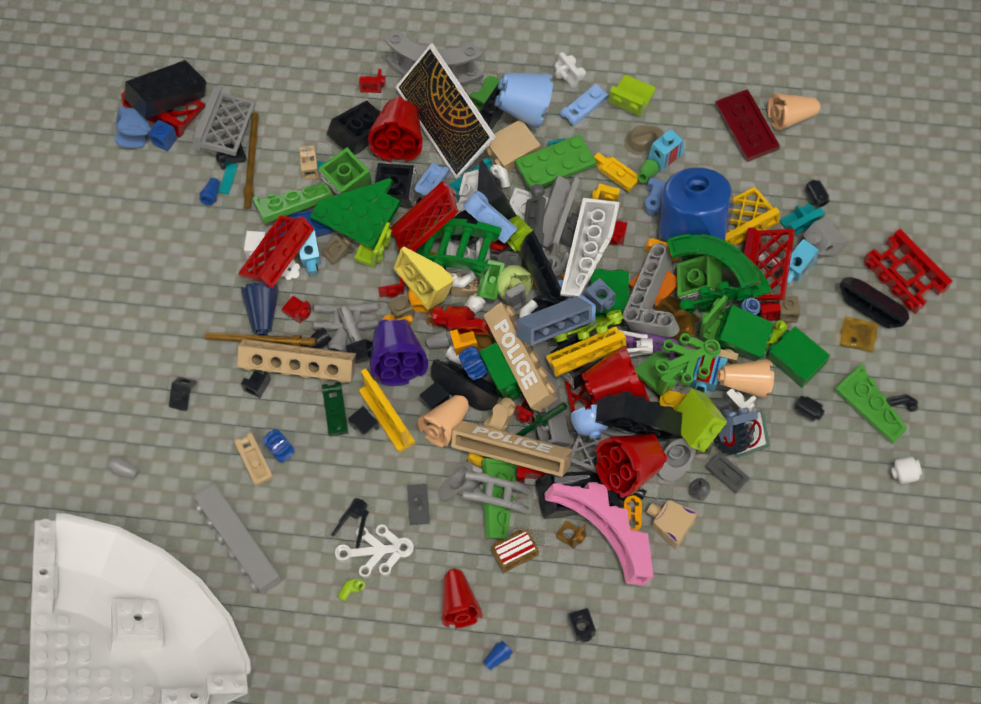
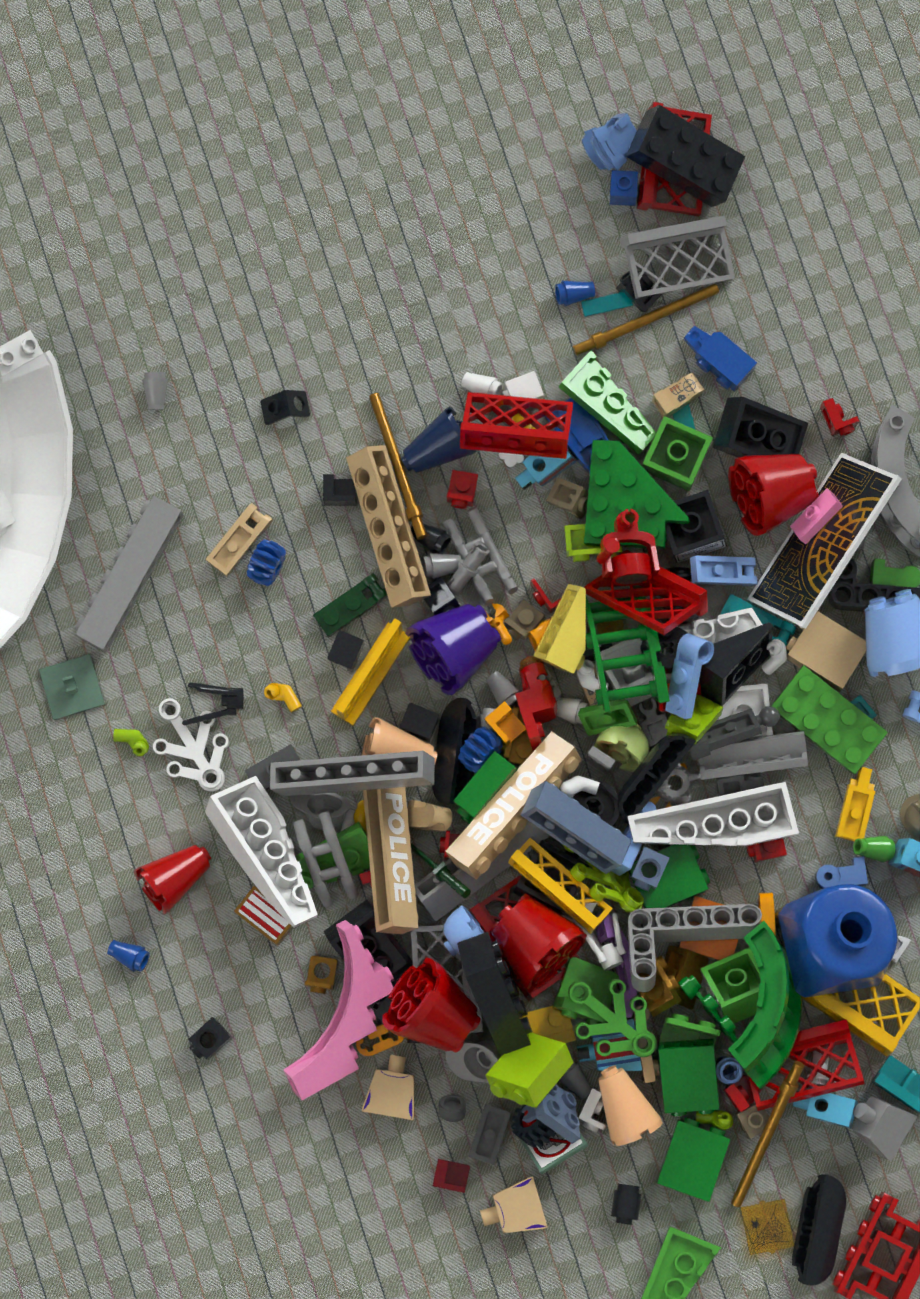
camera: 65 degrees right, 15 degrees up
(232, 272) = (481, 384): none -> white cone
(292, 614) = (71, 687): none -> sand green piece
(299, 128) = (720, 357): none -> blue hinge
(371, 475) = (284, 693): none -> yellow arm
(403, 220) = (628, 567): none -> red piece
(427, 111) = (816, 516): none -> bright pink plate
(449, 444) = (352, 773): none -> light grey brick
(463, 530) = (261, 846): none -> white wedge
(606, 193) = (815, 810): yellow bracket -> none
(744, 510) = (451, 1175): none -> dark red panel
(779, 271) = (787, 1089): none -> pearl gold bar
(784, 475) = (516, 1208): none -> tan torso

